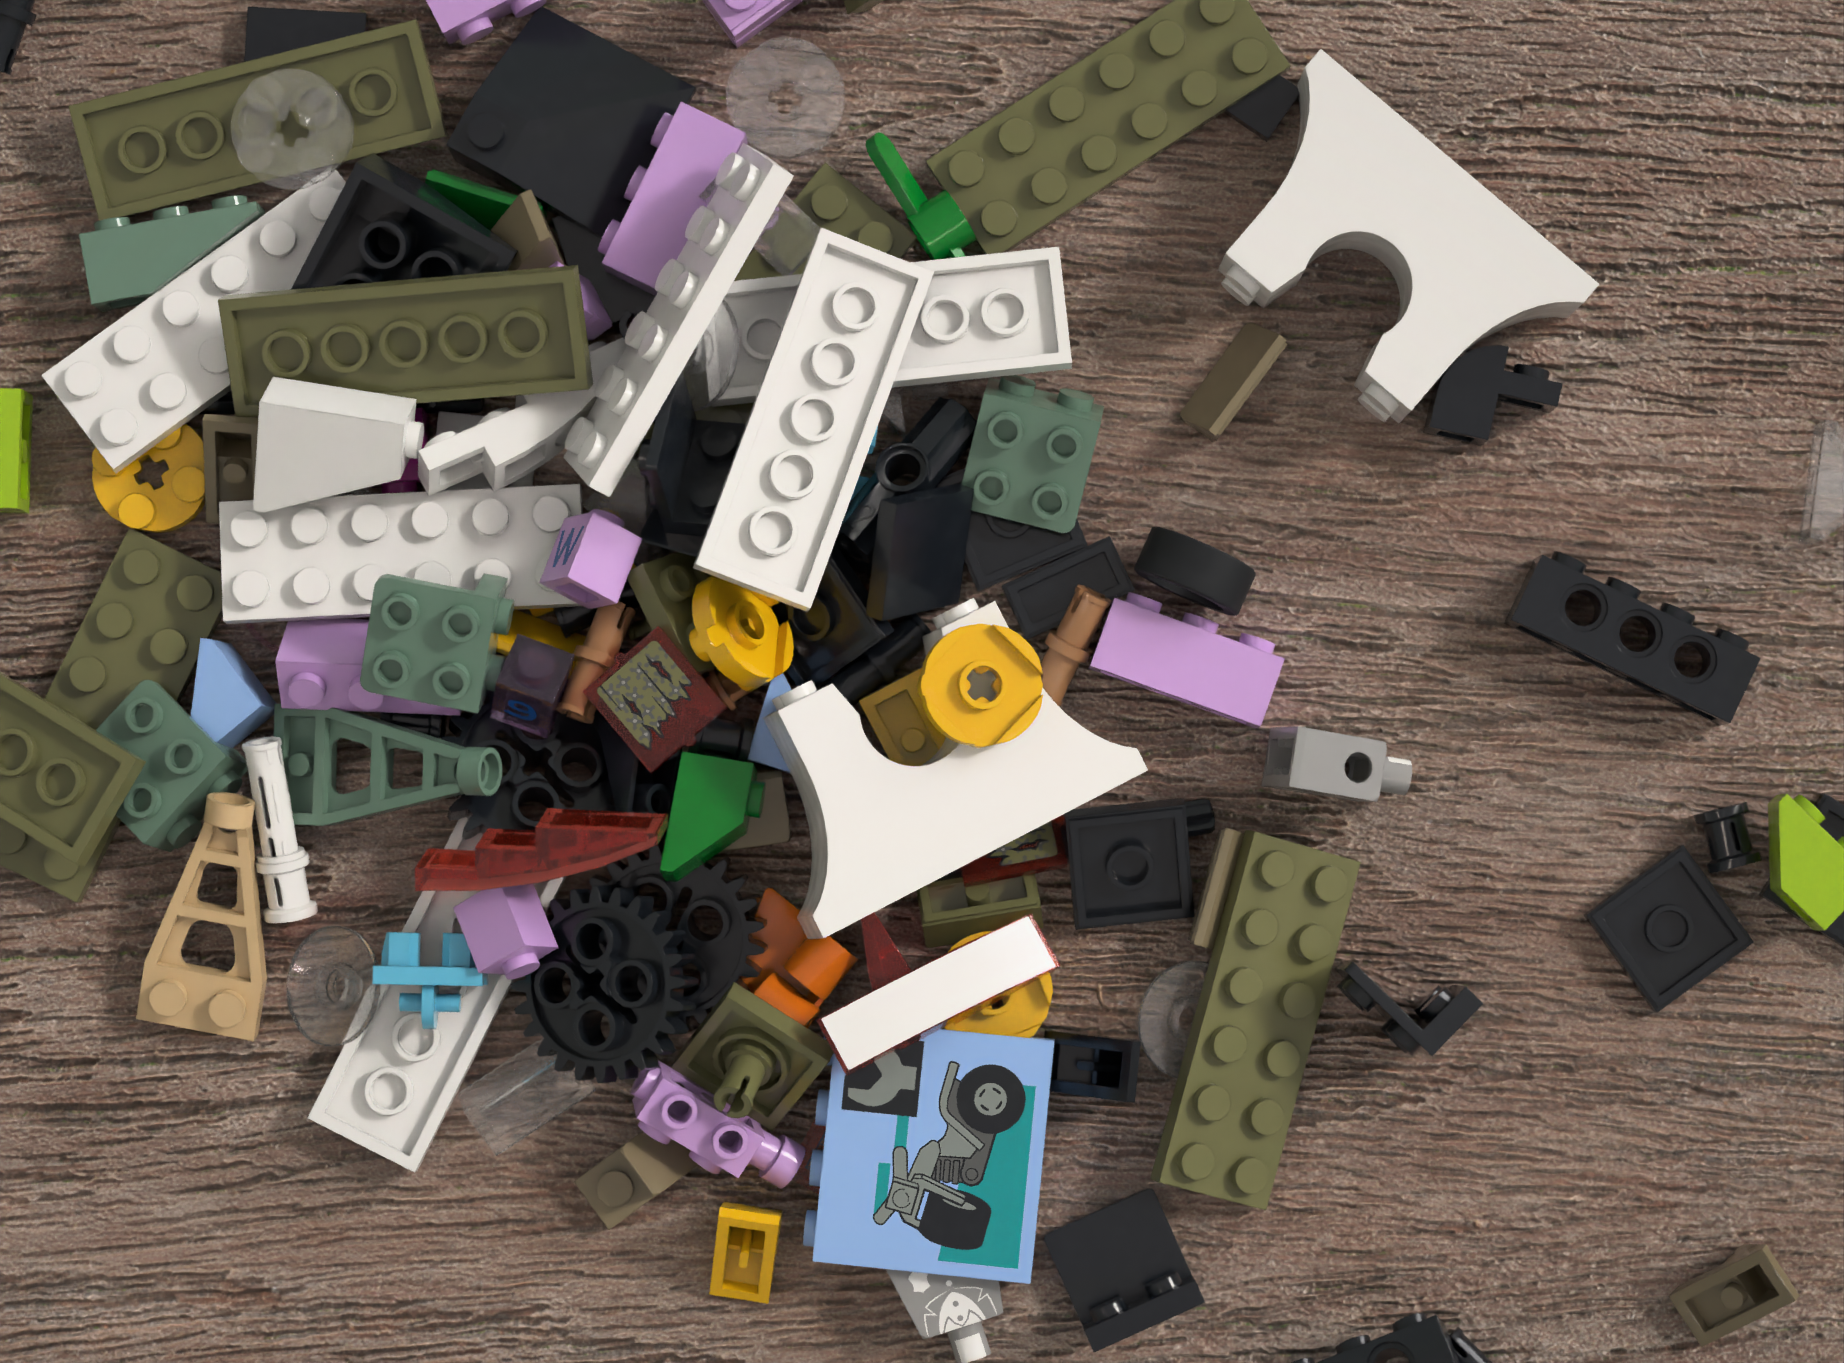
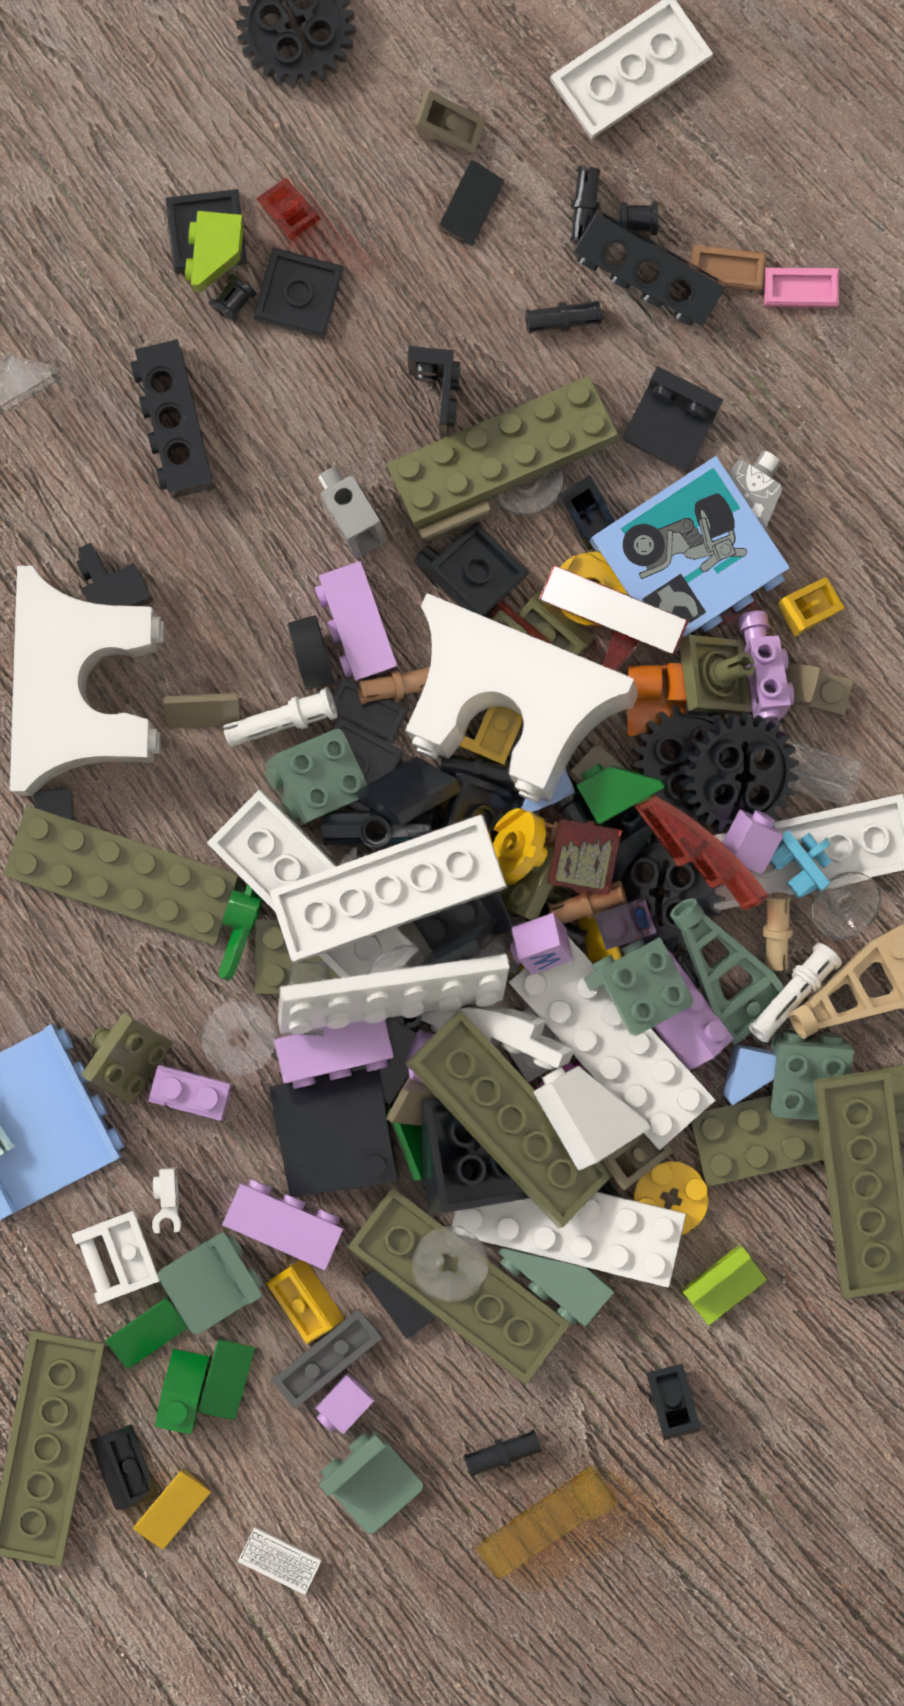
camera: 130 degrees left, 0 degrees up
(371, 873) = (777, 931): none -> tan pin
(1017, 685) = (436, 686): yellow plate -> none
(1133, 491) = (296, 714): none -> white pin
(1367, 1239) = (563, 316): none -> black pin
(1608, 1240) = (471, 203): none -> black slope
(1784, 998) = (289, 211): none -> clear red slope

